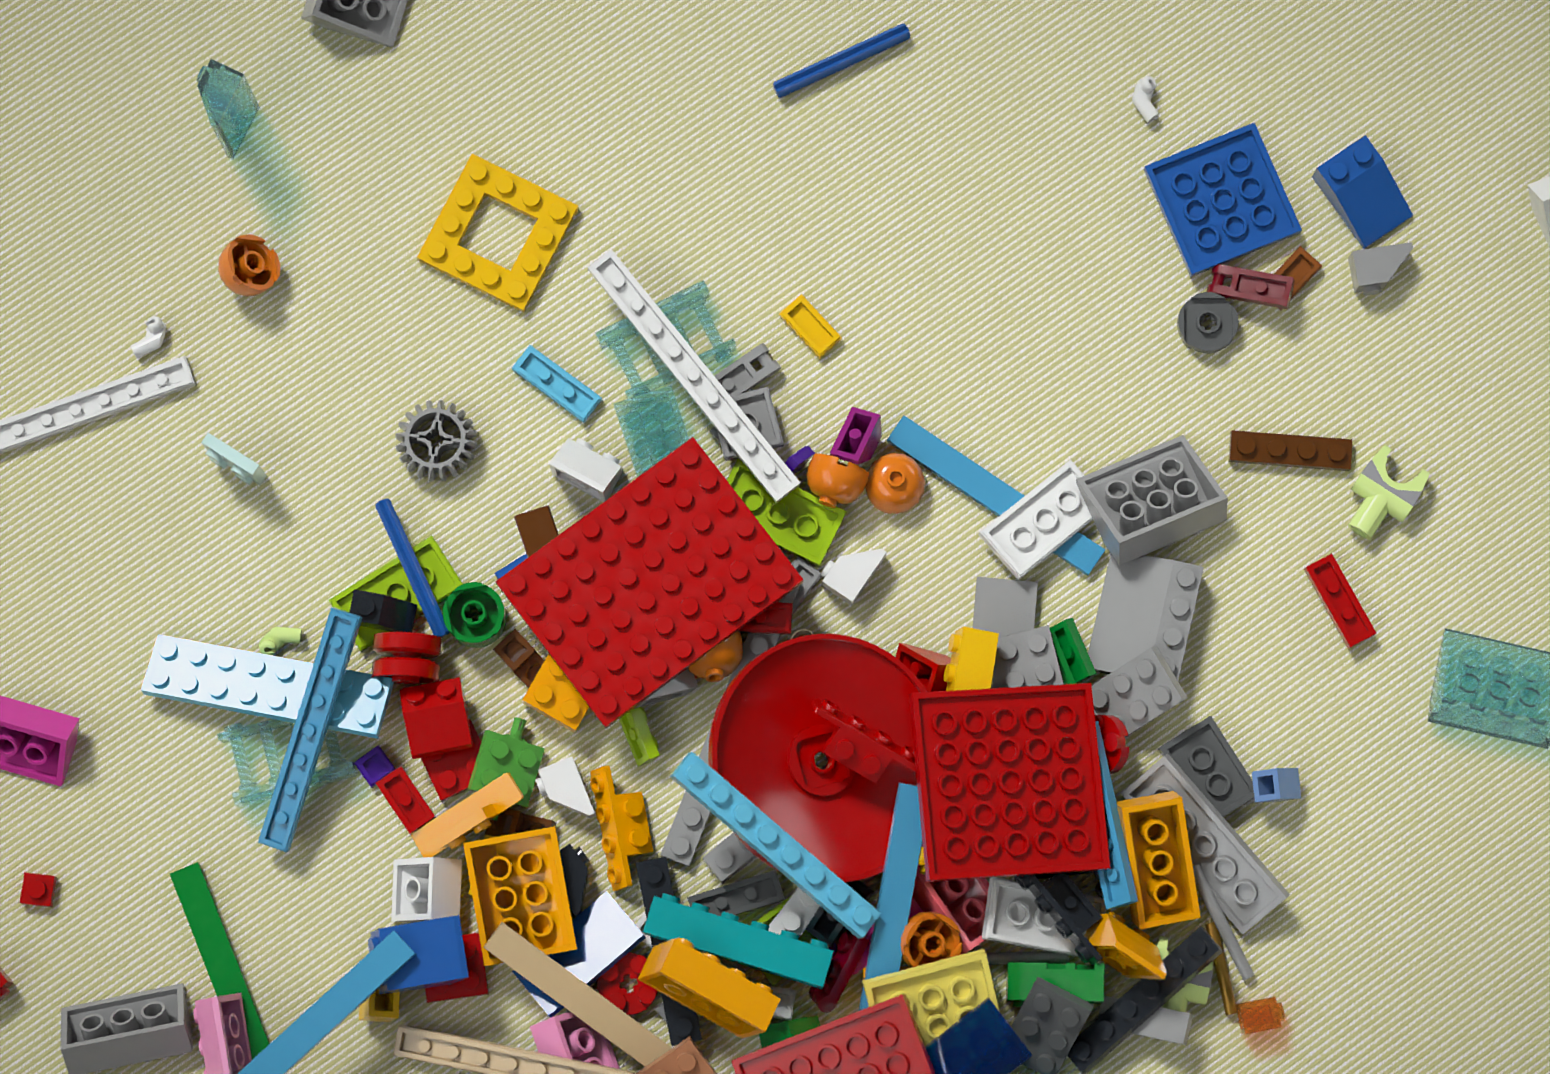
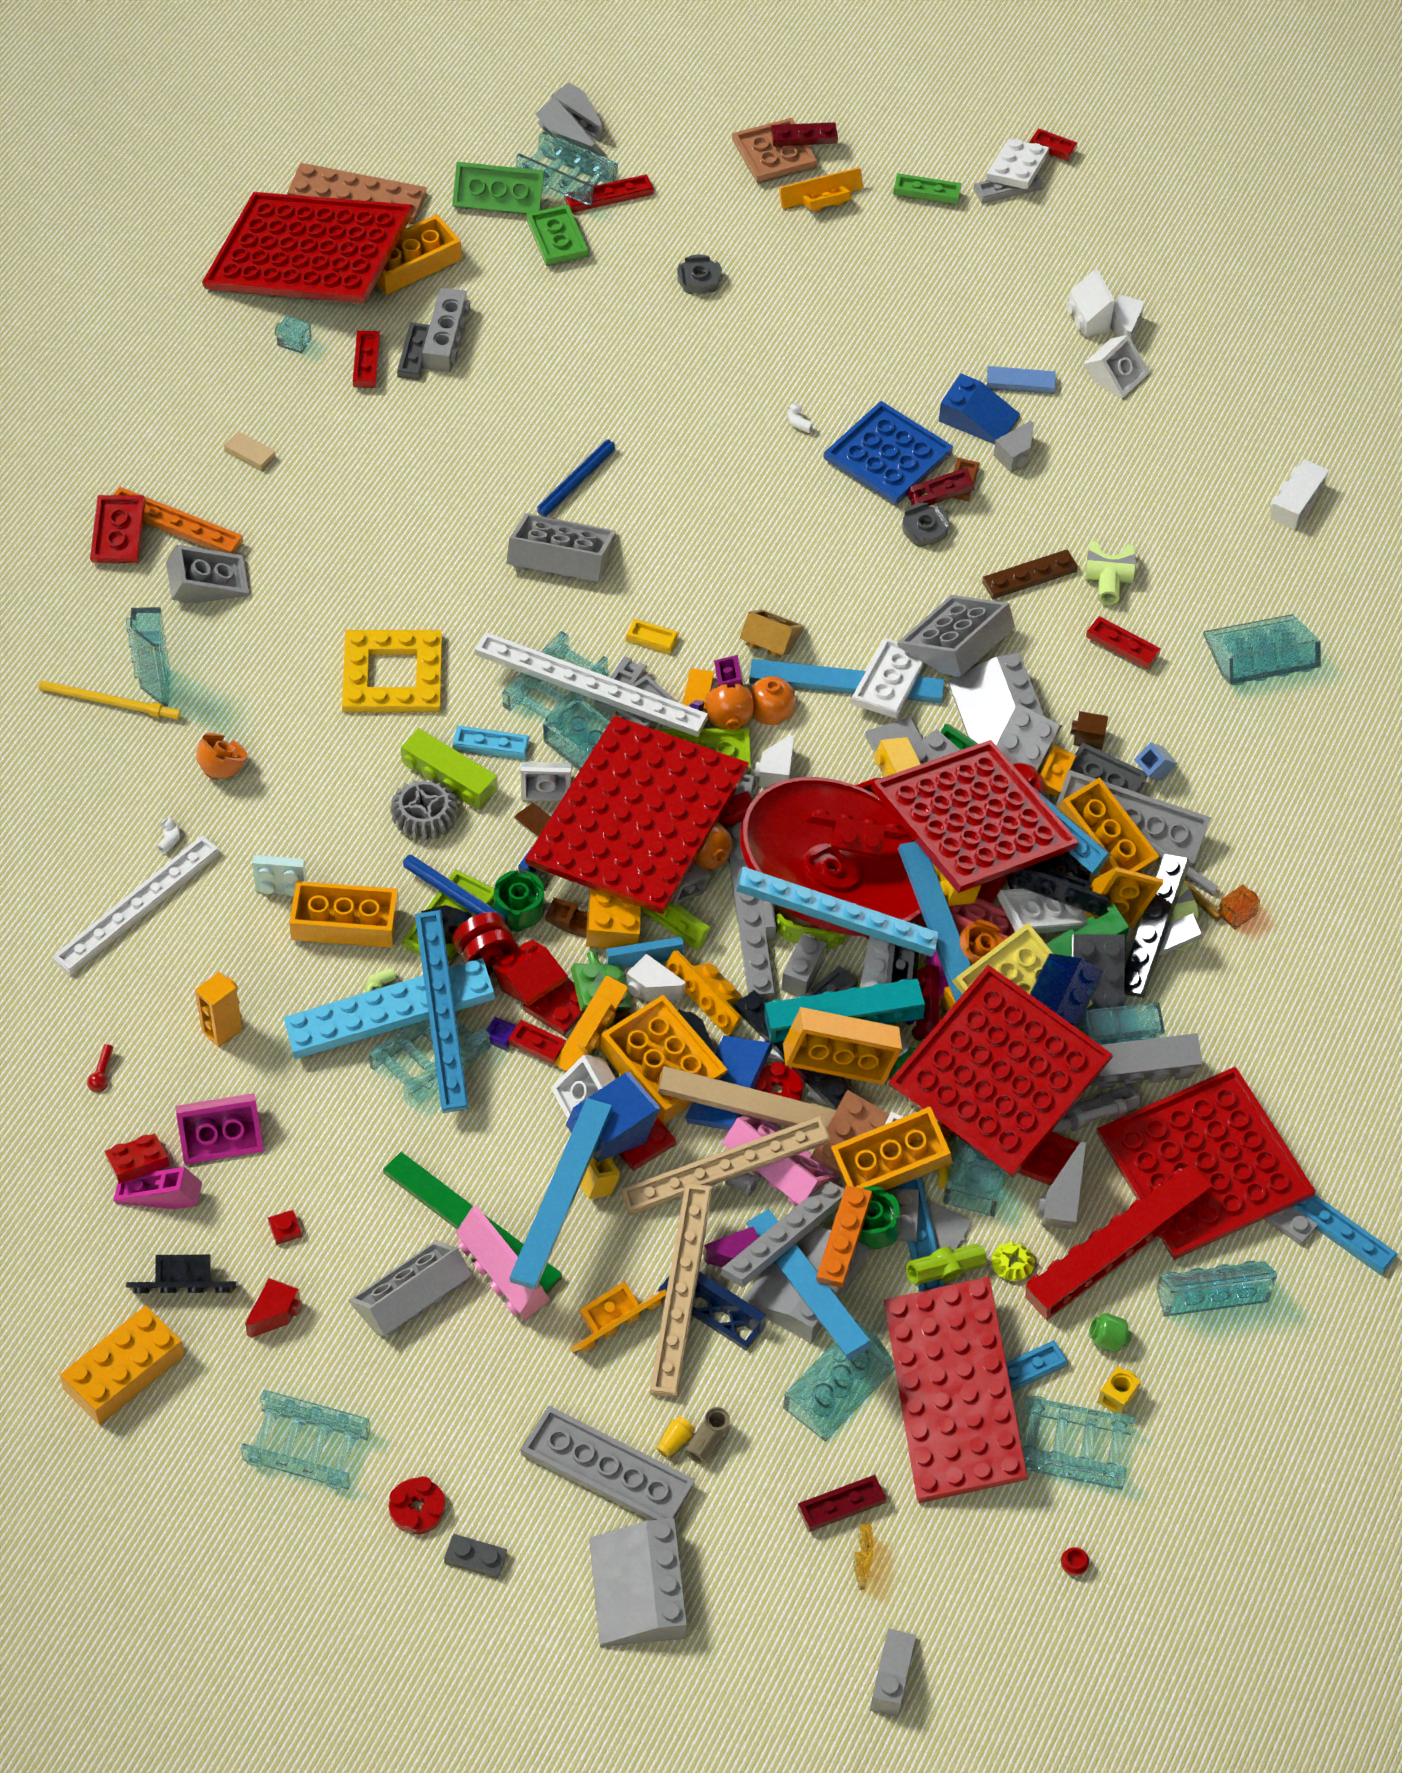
camera: 30 degrees left, 25 degrees down
(84, 606) = (219, 1009): none -> light orange brick
(213, 160) = (154, 709): none -> yellow bar
(280, 541) = (344, 914): none -> light orange brick
(490, 401) = (439, 761): none -> lime brick
(576, 747) = (629, 955): none -> dark azure tile
(771, 153) = (560, 547): none -> light grey slope
(821, 425) = (698, 686): none -> light orange tile
(945, 389) = (770, 632): none -> pearl gold slope
(1154, 741) = (1055, 769): none -> light orange panel
(1229, 701) = (1089, 729): none -> reddish brown brick
(1443, 166) = (1021, 379): none -> medium blue tile

